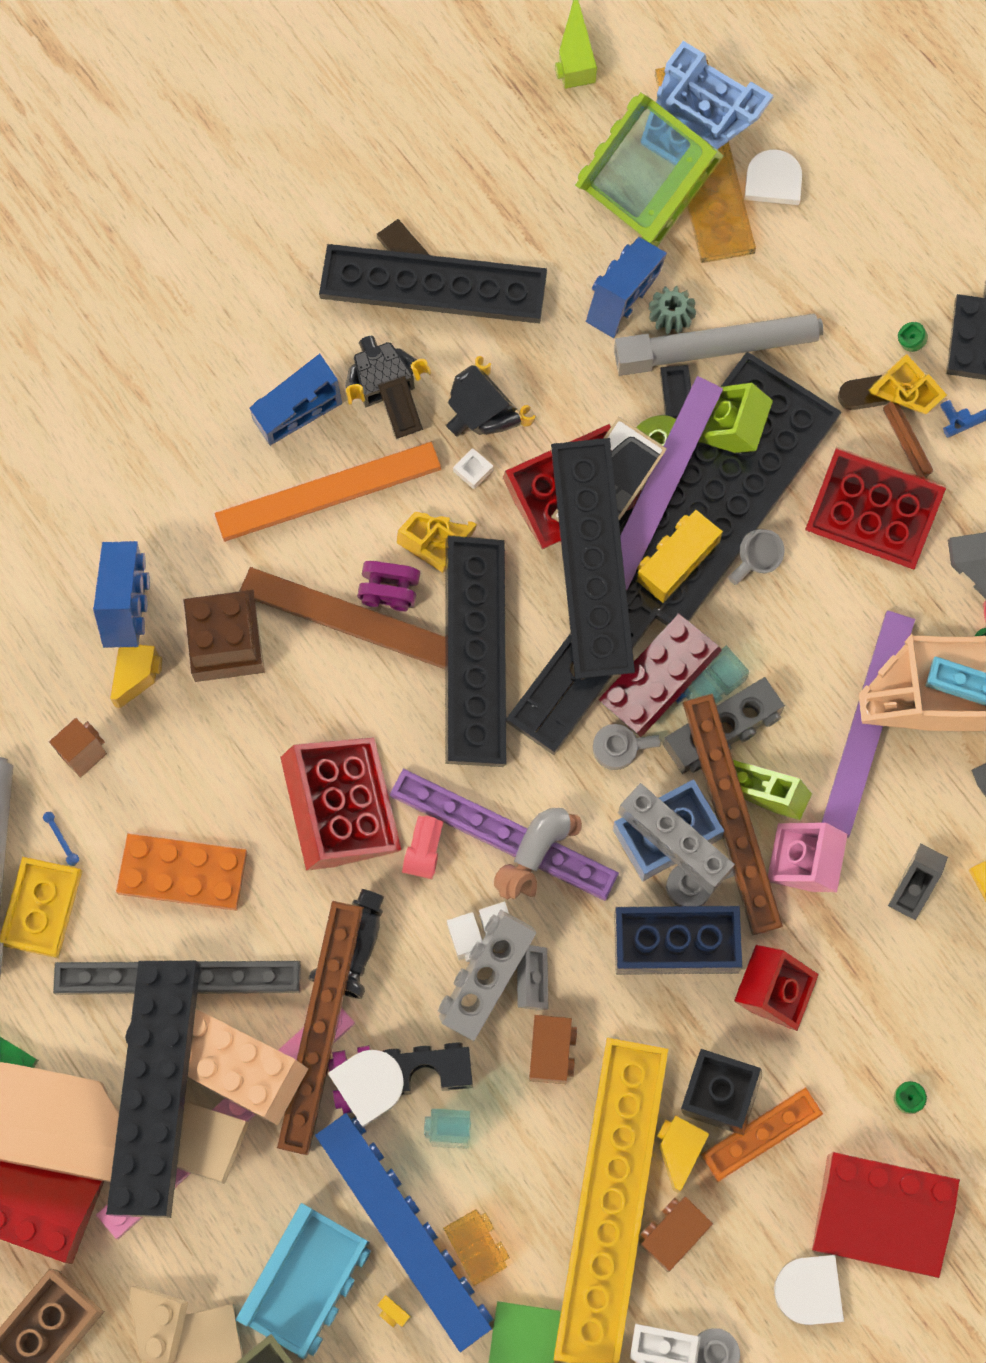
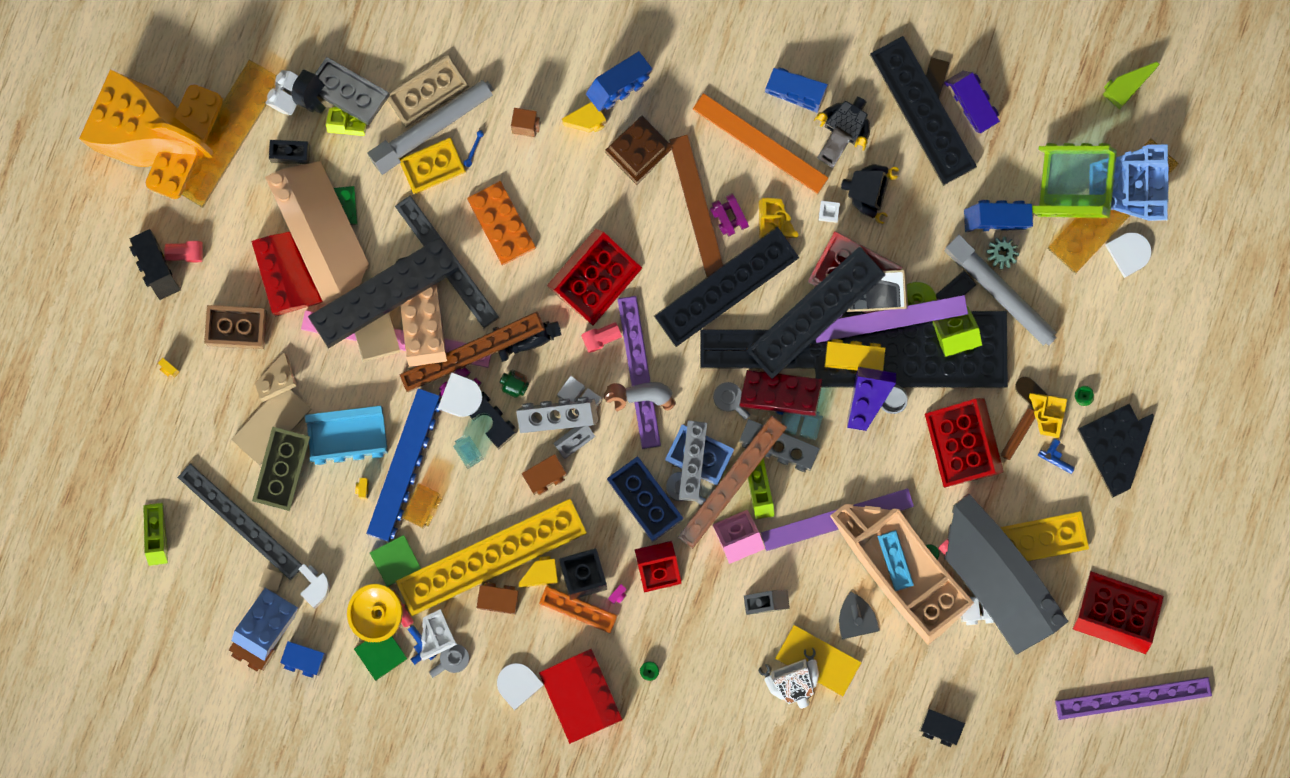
camera: 55 degrees right, 10 degrees up
(402, 1003) = (514, 383): none -> dark green head
(464, 218) = (973, 100): none -> dark purple wedge
(743, 572) = (868, 396): none -> dark purple wedge
(779, 1065) = (618, 595): none -> dark pink plate

